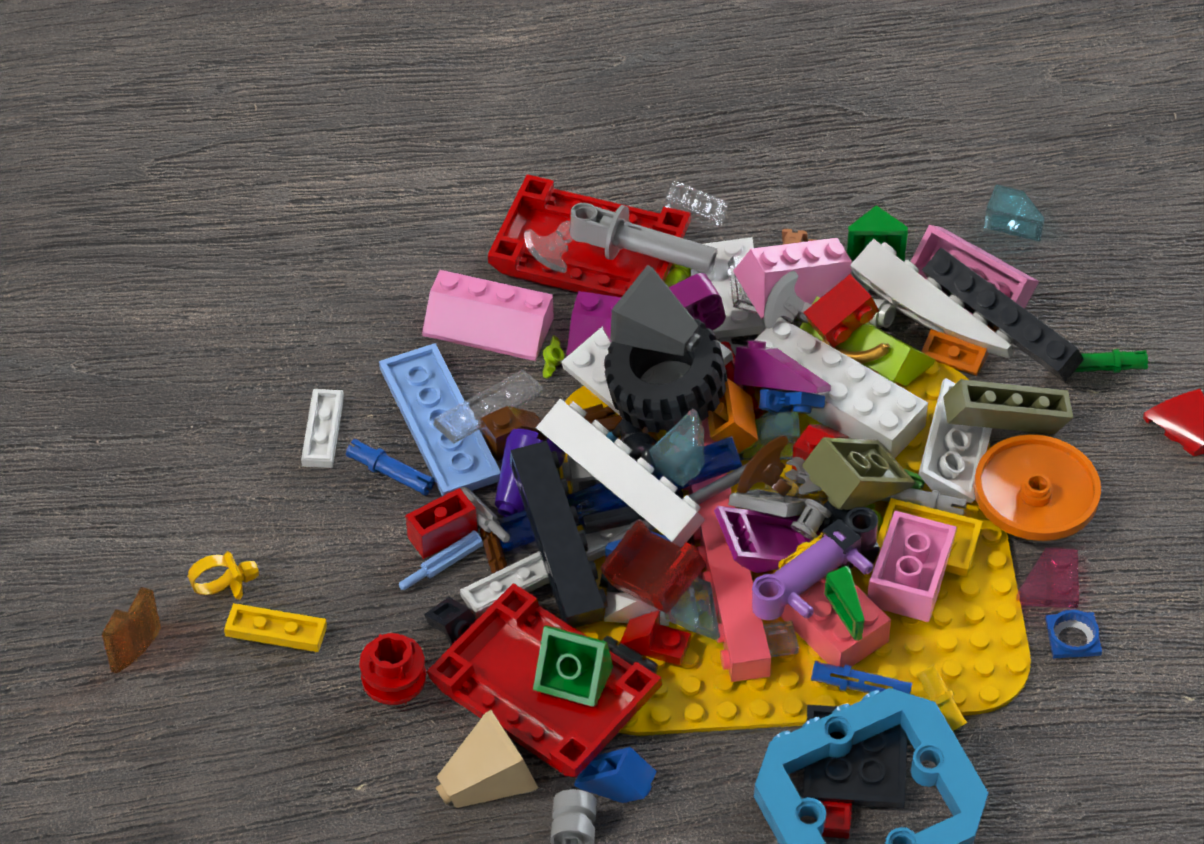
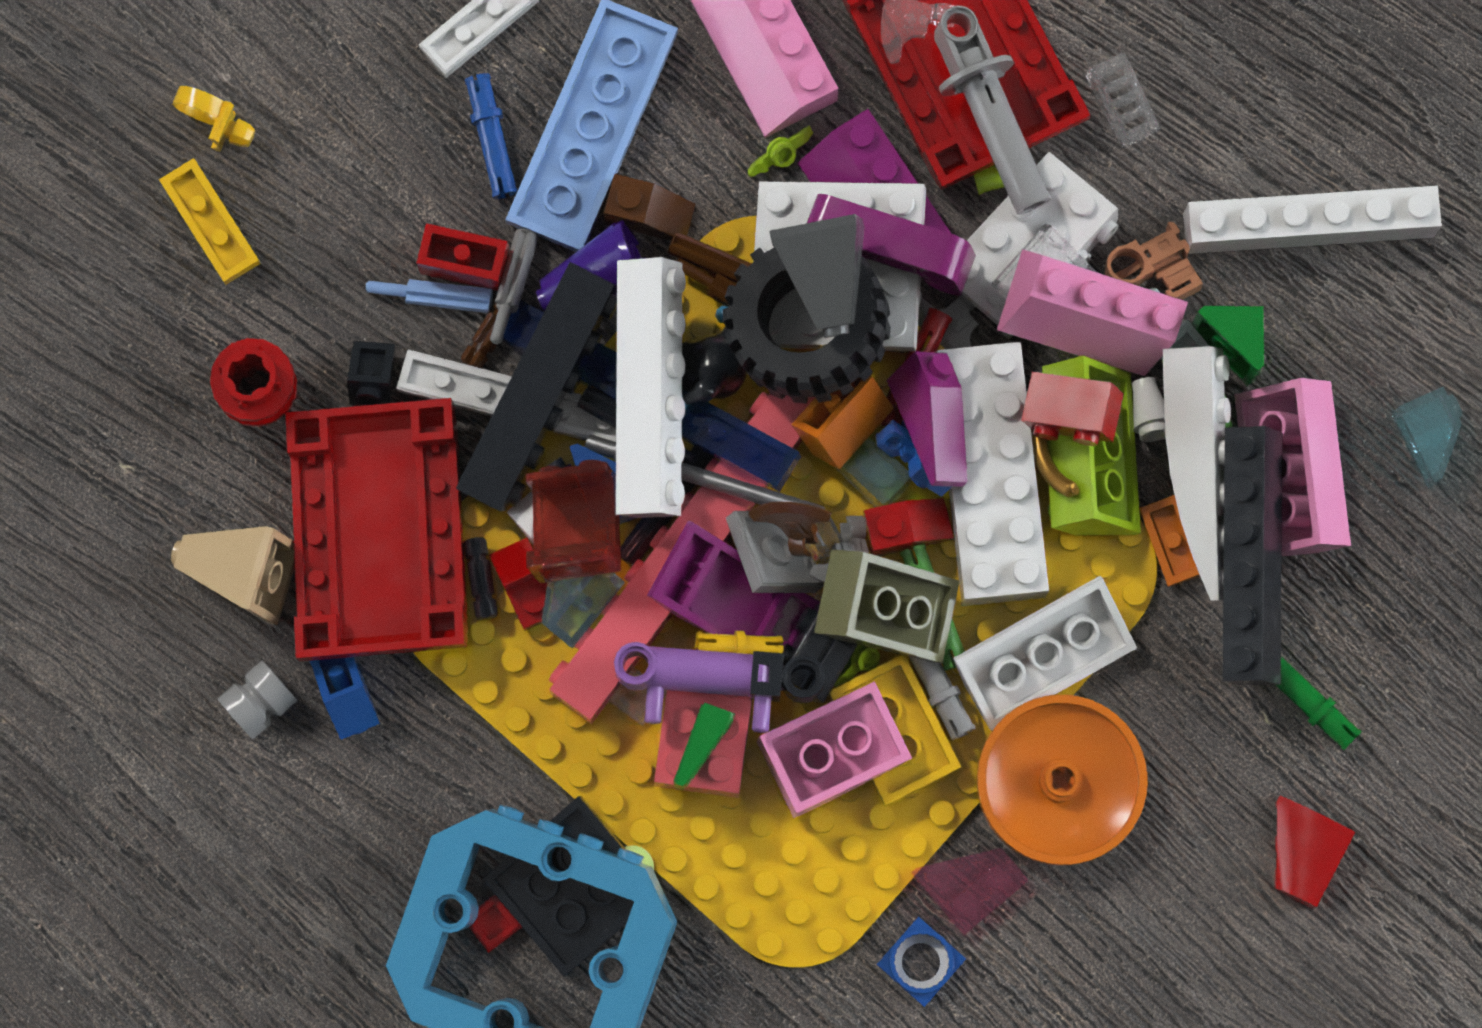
camera: 45 degrees right, 30 degrees up
(132, 631) = (81, 106): clear orange slope -> none
(466, 417) = (649, 158): clear tile -> none
(572, 666) = (399, 551): green slope -> none
(681, 450) = (732, 423): clear light blue slope -> none
(784, 302) = (1033, 338): light grey piece -> none
(811, 519) = (783, 612): light grey bush -> none
(822, 673) = (658, 818): blue pin -> none
(848, 175) = (1312, 219): none -> white brick
(942, 696) = (711, 909): yellow pin -> none
(1007, 406) = (1126, 671): olive brick -> none

